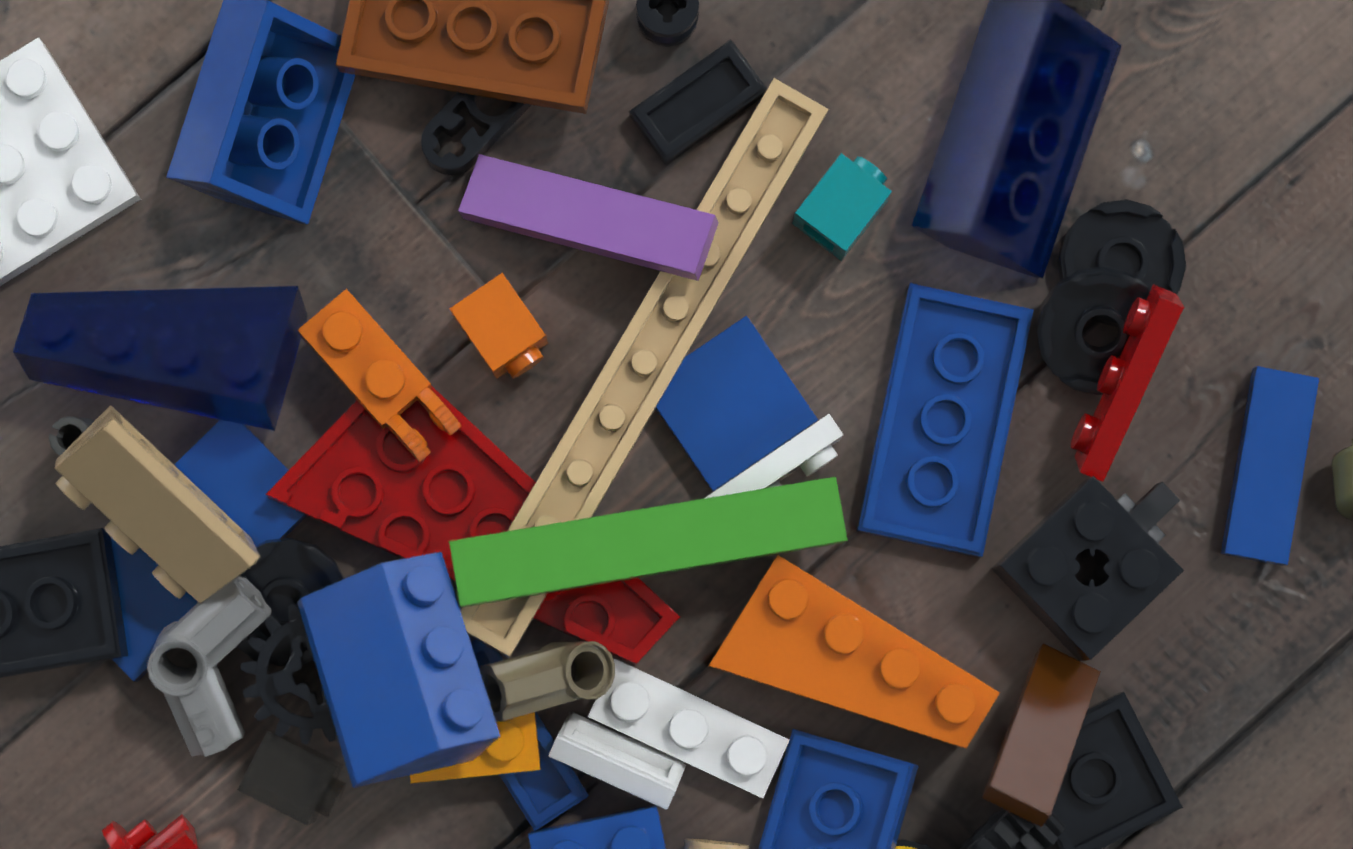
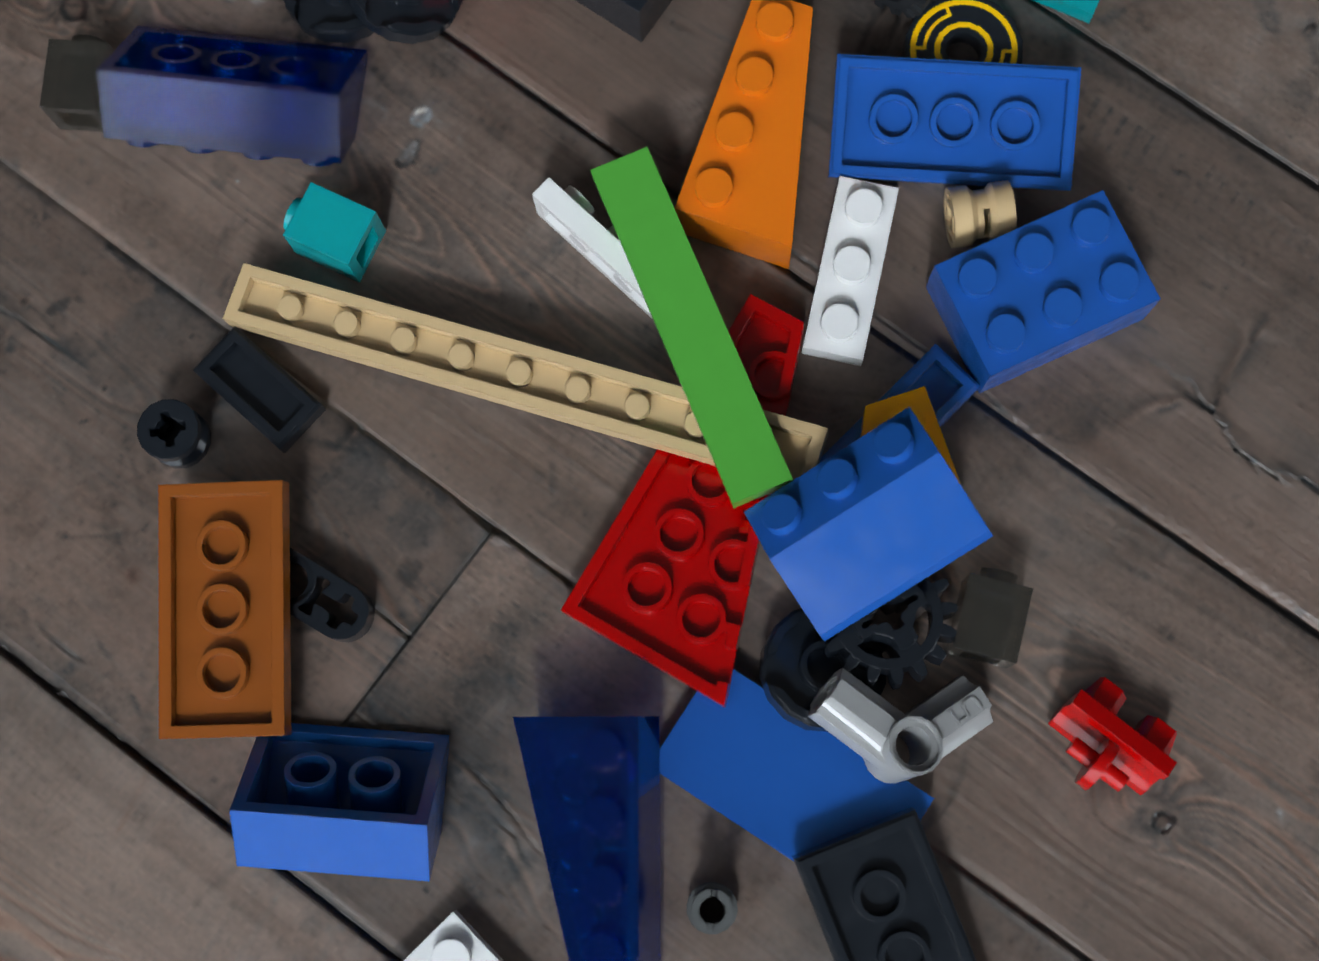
camera: 90 degrees left, 5 degrees down
(154, 508) = (765, 803): tan slope -> none
(374, 370) = (580, 625): orange hinge -> none
(501, 328) = (513, 519): orange brick -> none
(545, 678) = (834, 391): dark tan piece -> none
(589, 217) = (389, 459): medium lavender tile -> none
(617, 760) = (897, 321): white tile -> none
(732, 404) = (542, 291): blue tile -> none
(945, 420) = (514, 106): blue tile -> none

